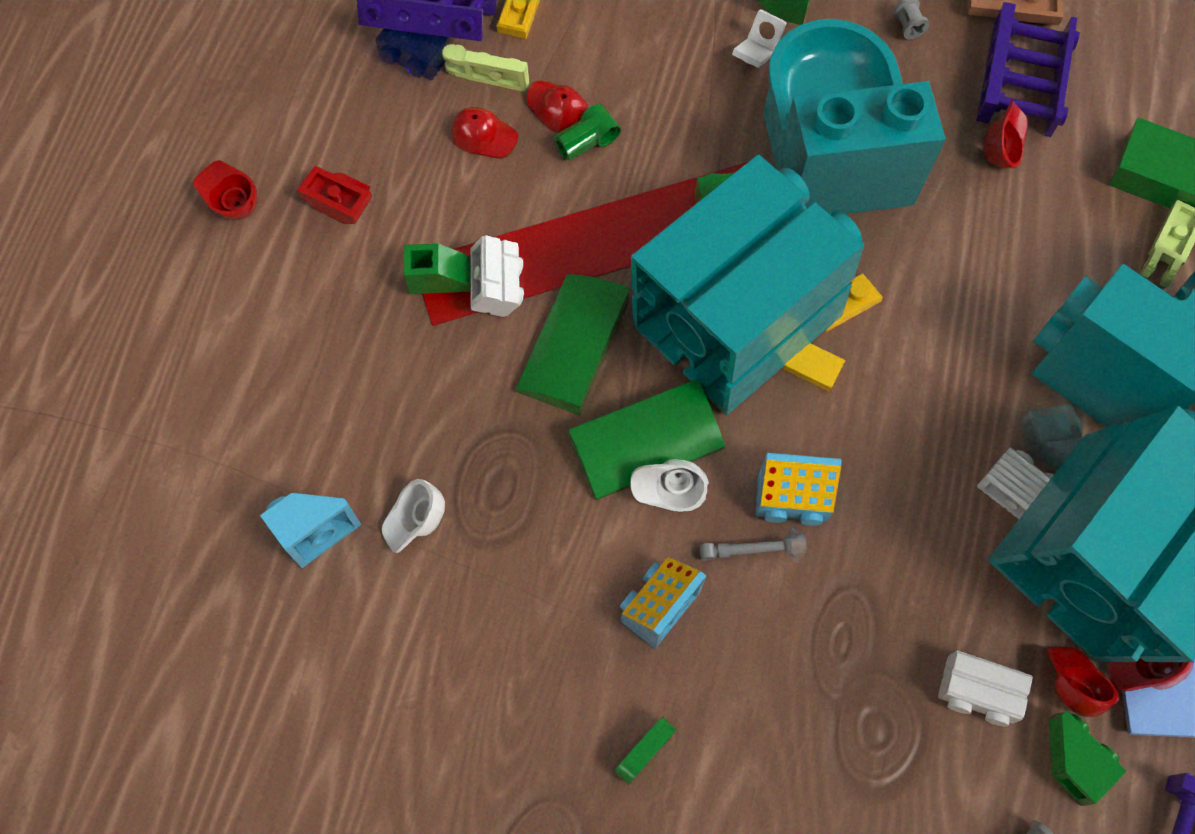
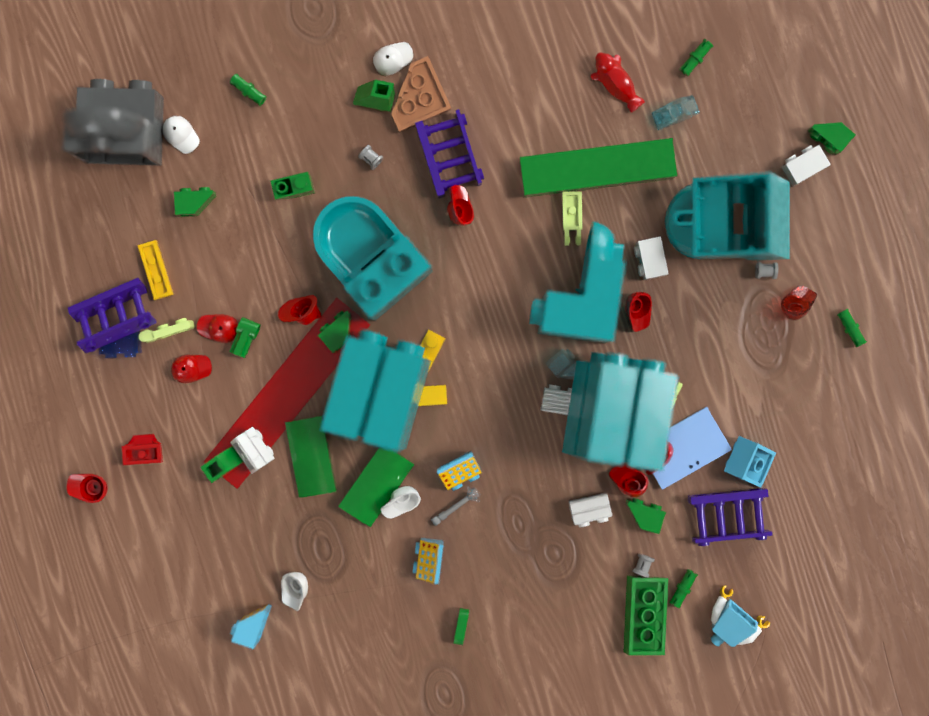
camera: 30 degrees left, 20 degrees up
(694, 147) = (301, 309): none -> red piece
(757, 49) = (300, 227): white bracket -> none

